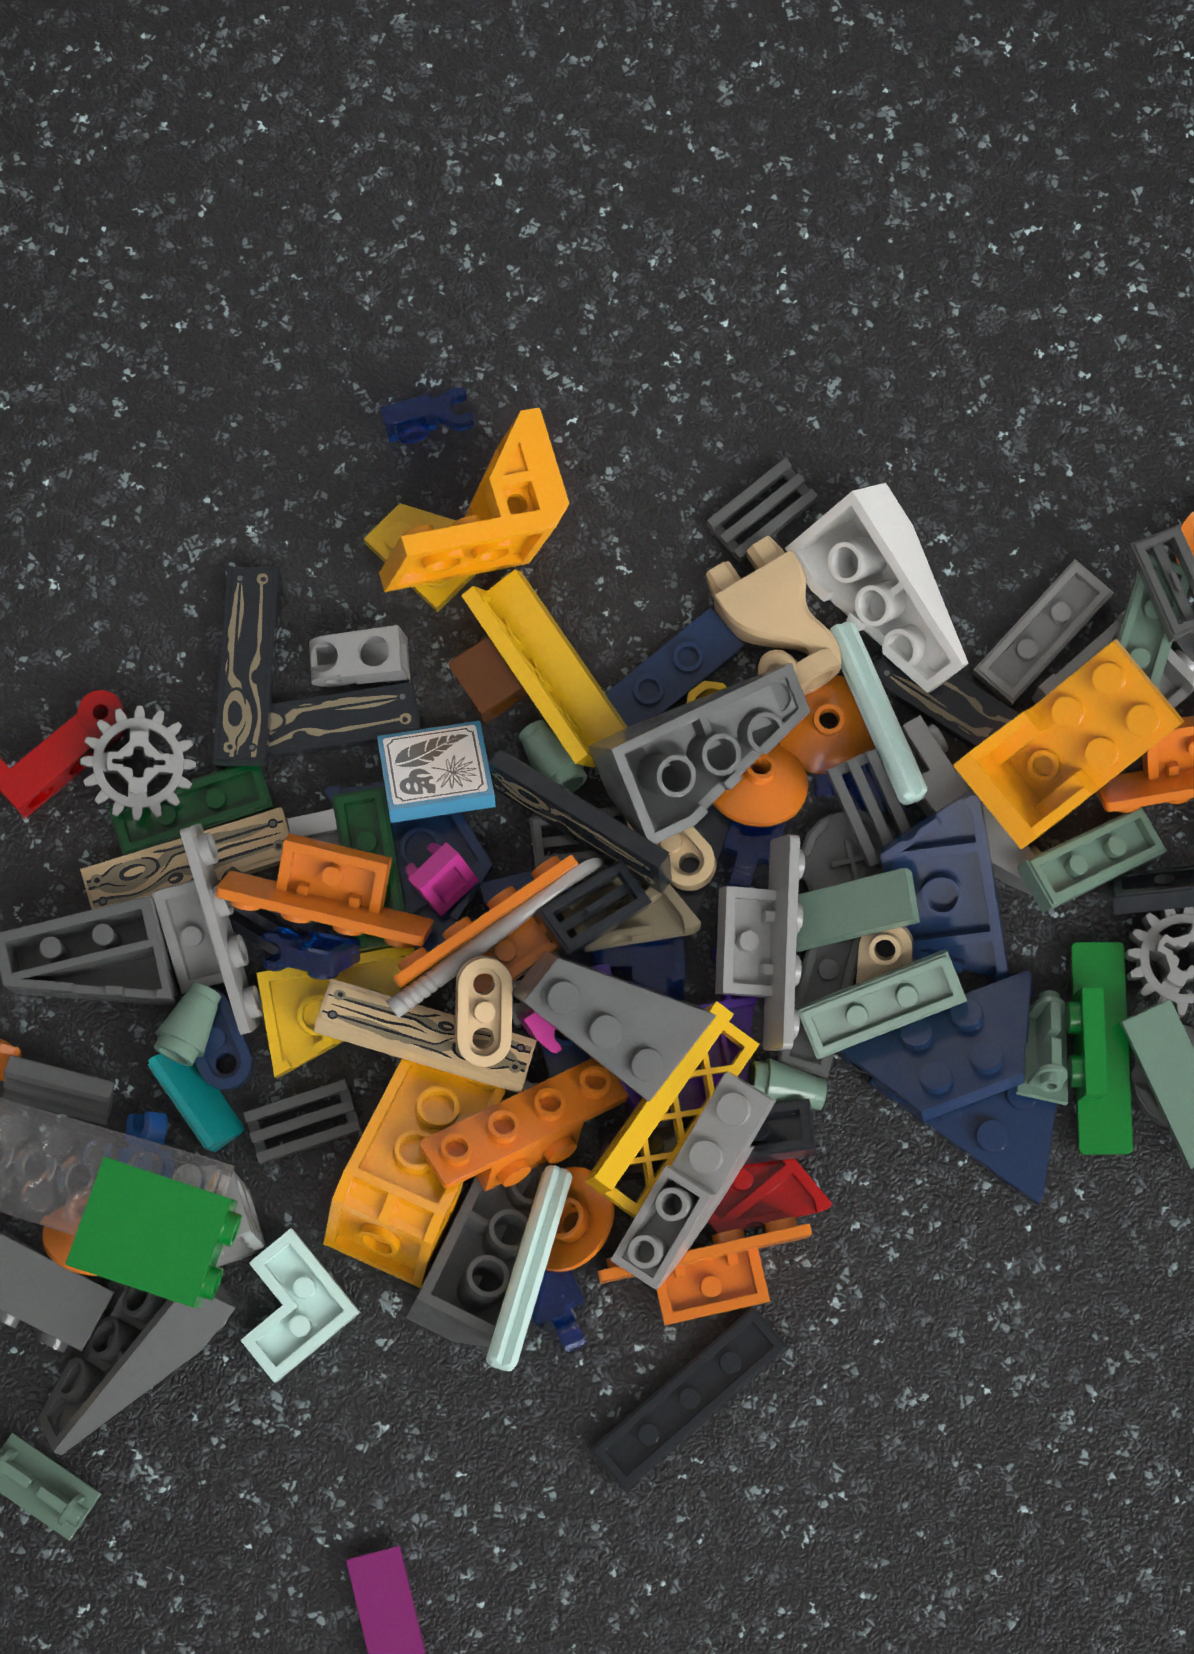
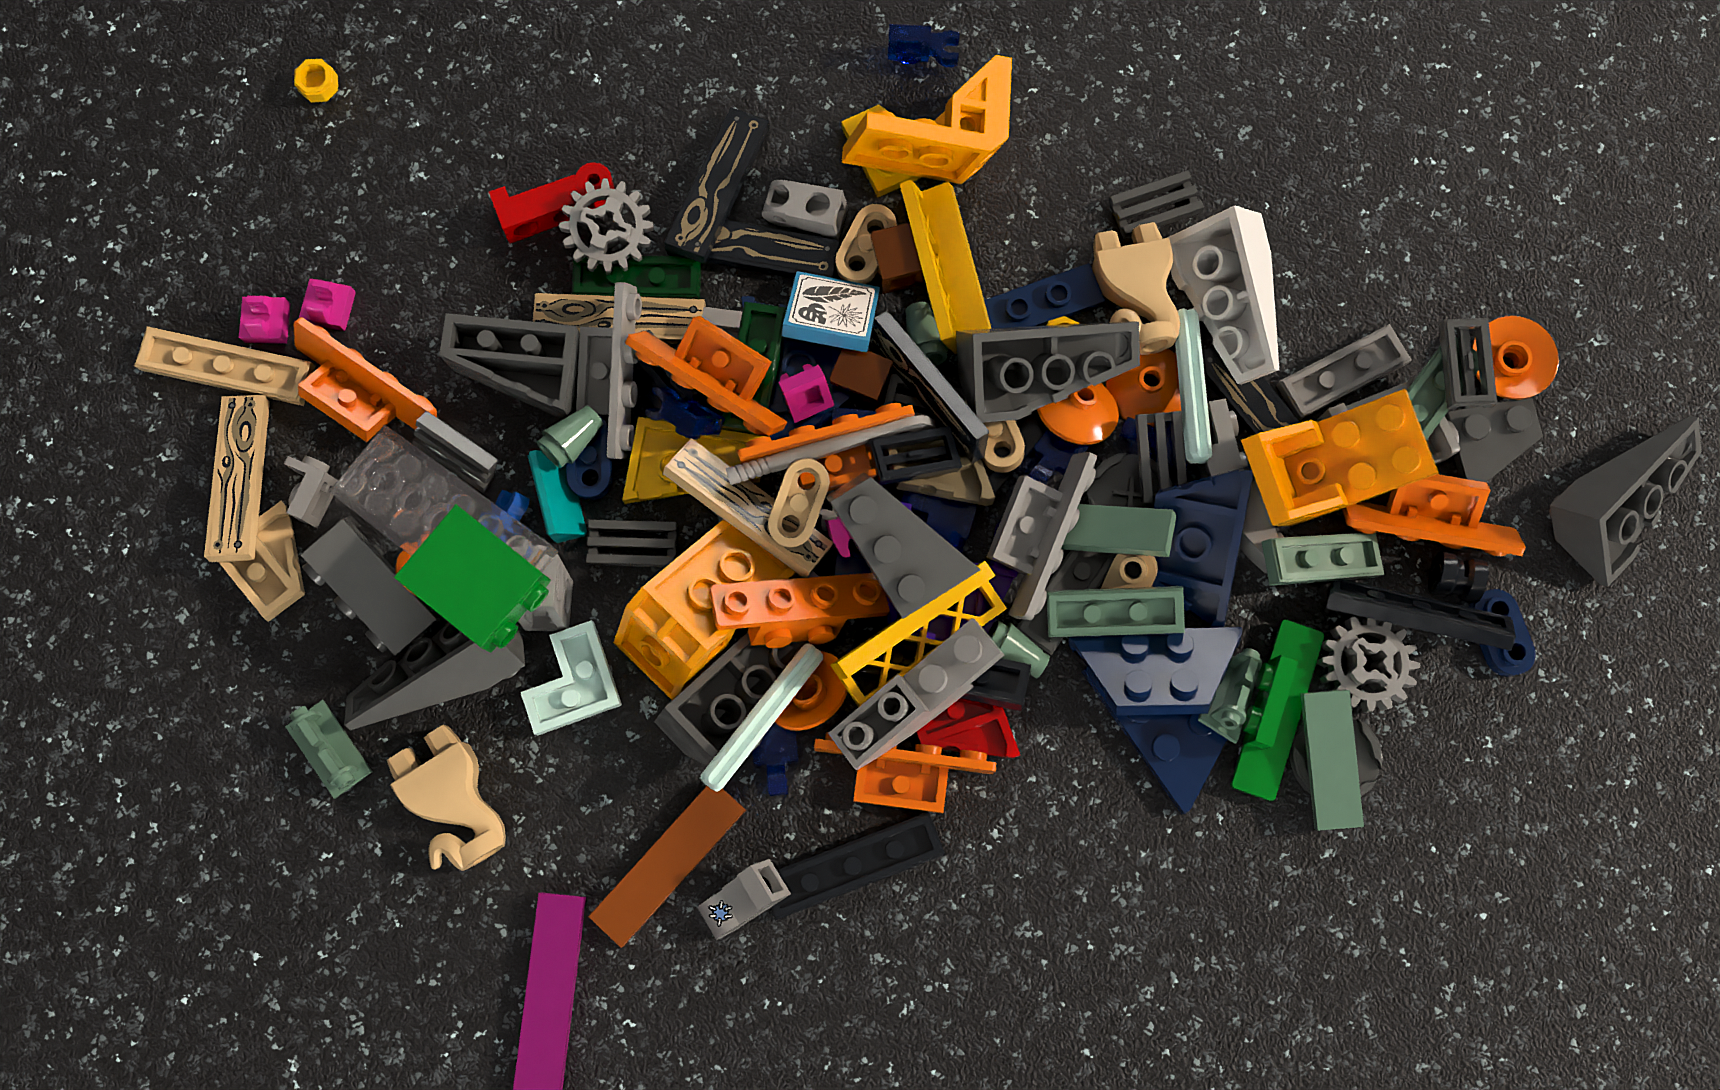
camera: 20 degrees right, 0 degrees up
(200, 1487) = (448, 793): none -> tan hips
(438, 680) = (858, 244): none -> tan plate
(479, 1474) = (666, 864): none -> dark orange tile
(498, 833) = (863, 375): none -> reddish brown panel
(581, 1481) = (743, 899): none -> light grey leg

